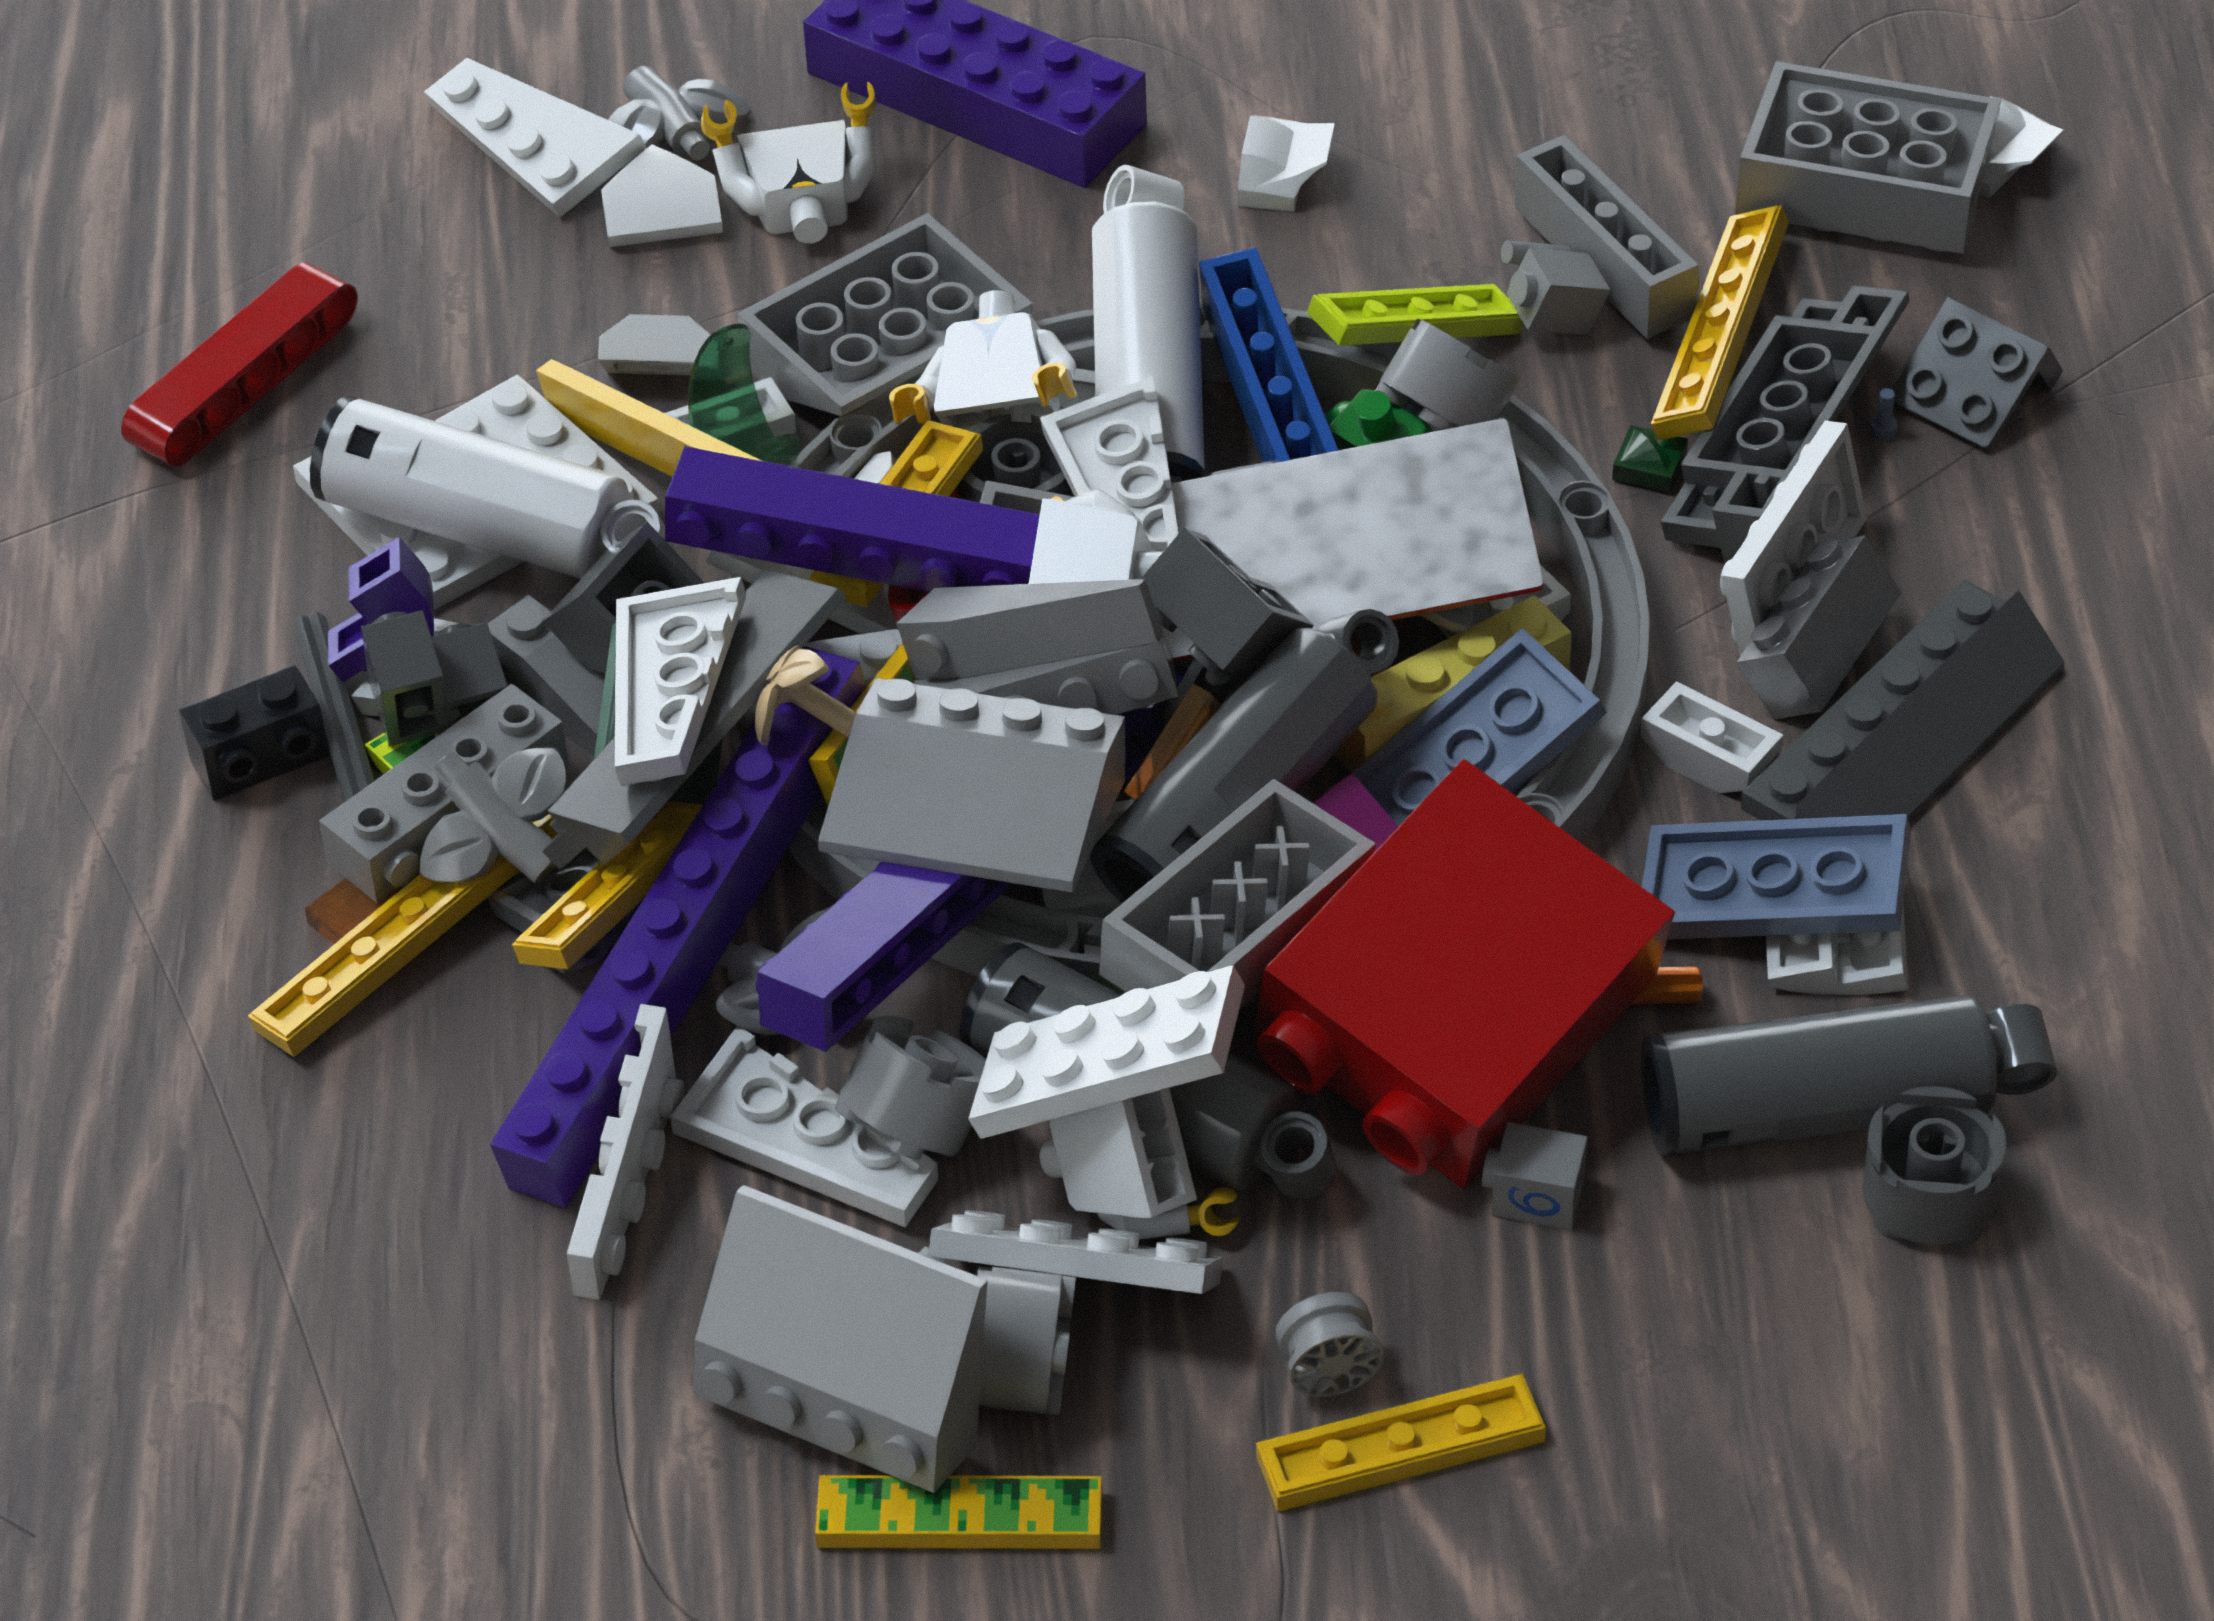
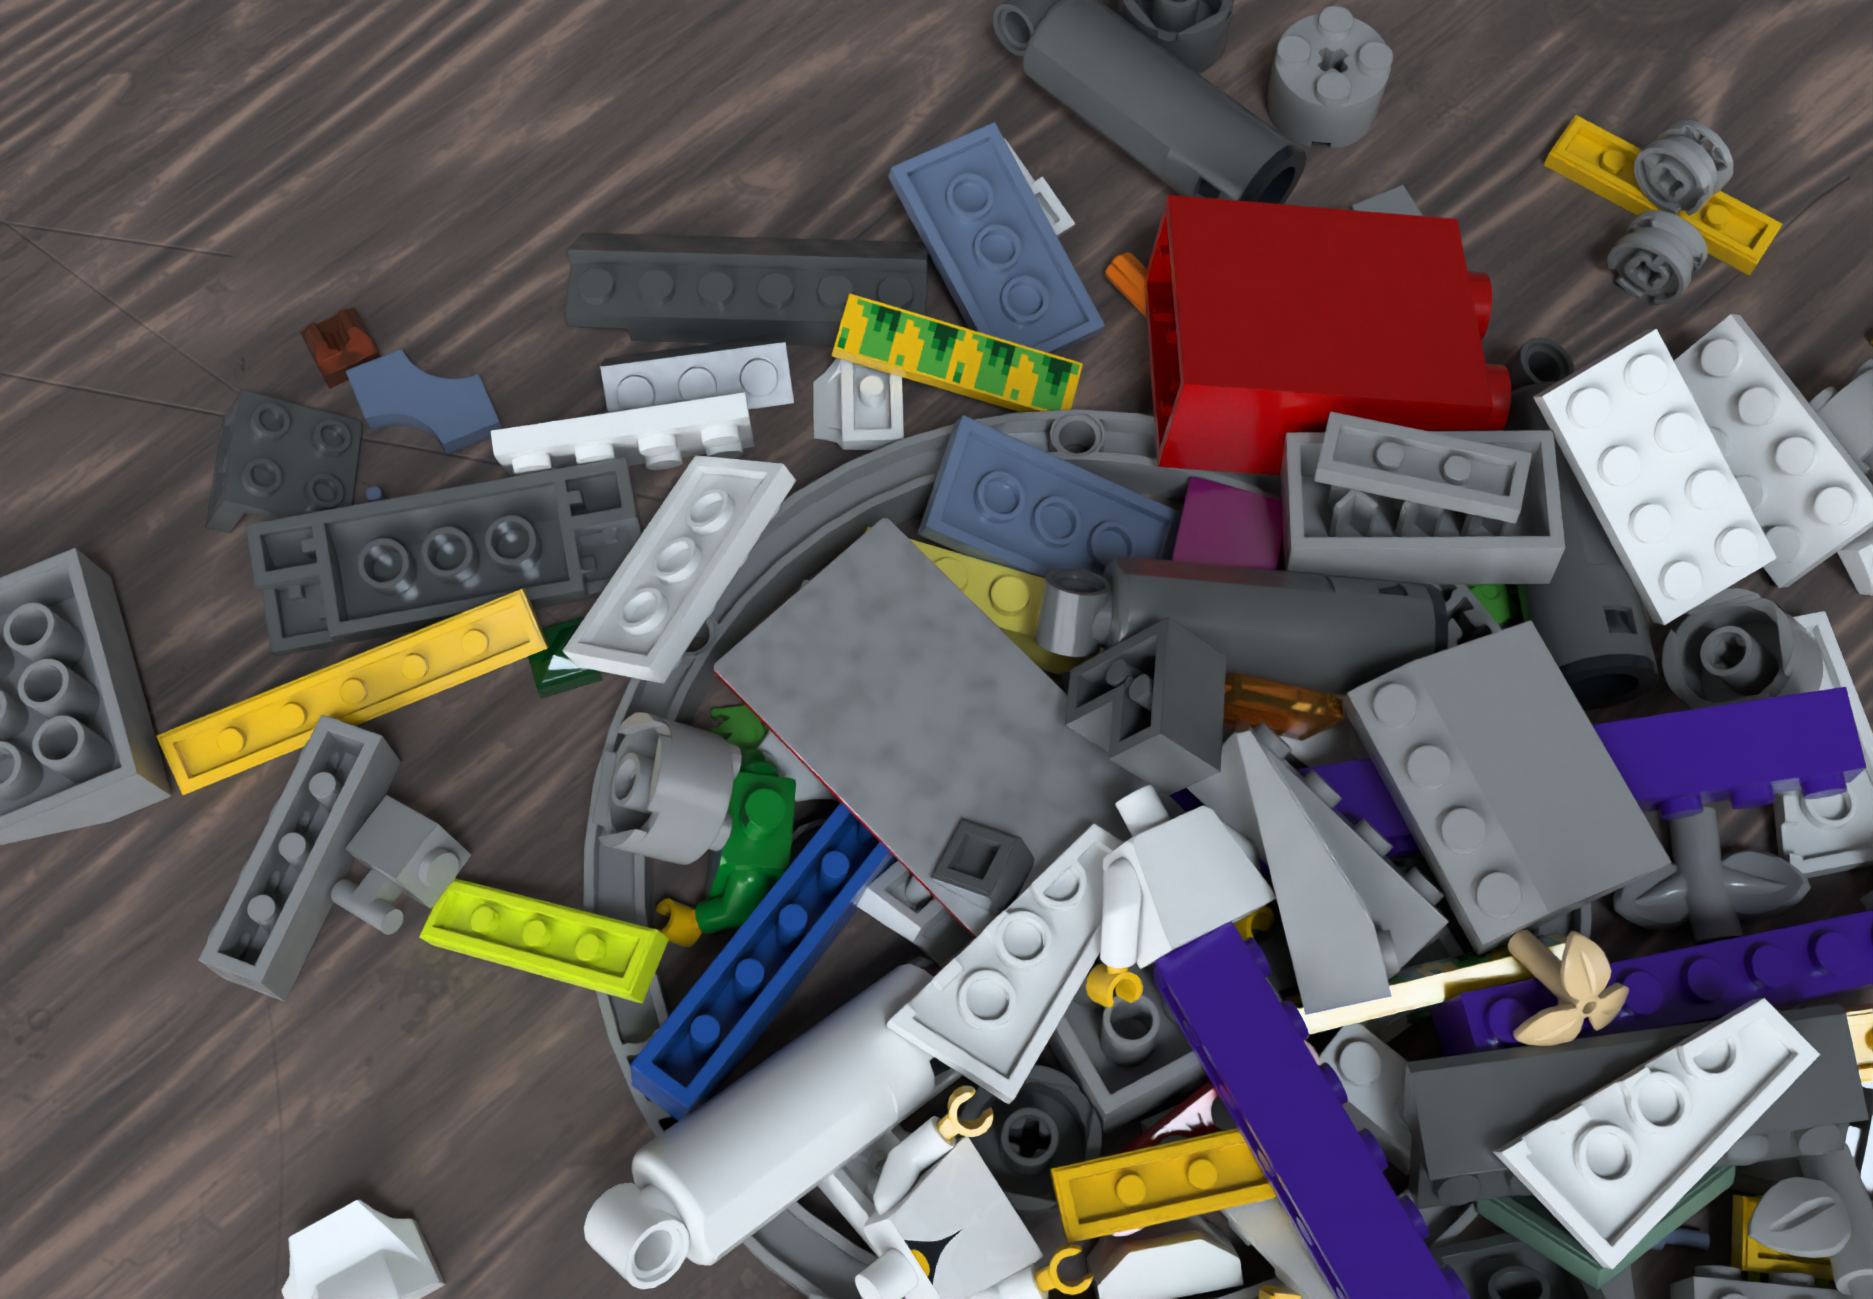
camera: 130 degrees left, 20 degrees up
(1214, 501) = (984, 866): none -> dark grey slope
(1251, 865) = (1423, 467): none -> light grey plate
(1389, 1398) = (1680, 171): none -> light grey wheel
(1636, 504) = (679, 567): none -> white plate
(1687, 780) = (954, 358): none -> tile
(1752, 1238) = (1328, 79): none -> light grey brick
(1989, 480) = (401, 394): none -> sand blue tile
(2074, 462) = (339, 345): none -> copper tile

